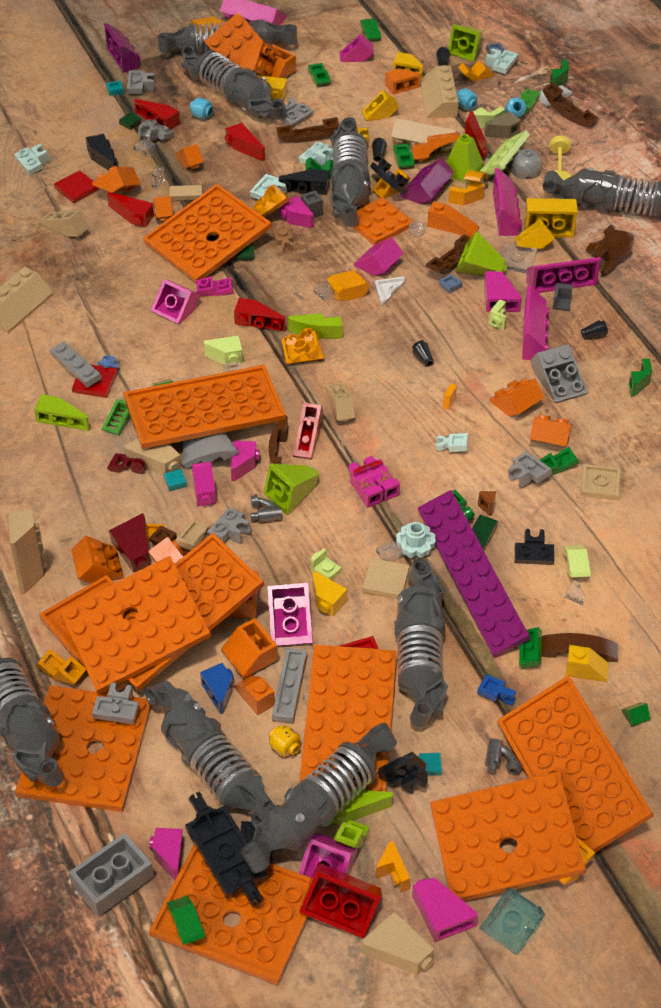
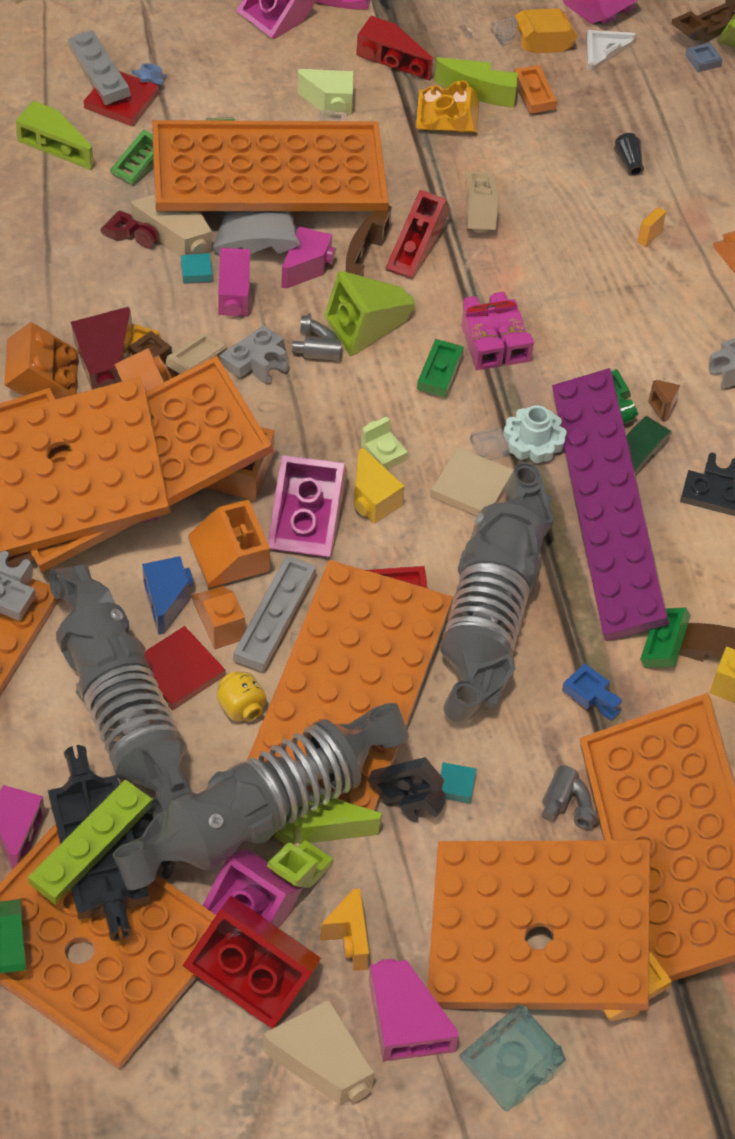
camera: 10 degrees right, 5 degrees up
(221, 849) = (90, 841): none -> lime plate
(243, 729) = (182, 667): none -> red tile
(345, 511) = (440, 367): none -> green plate
(353, 324) = (535, 89): none -> orange plate
(455, 442) = (639, 299): light aqua plate -> none

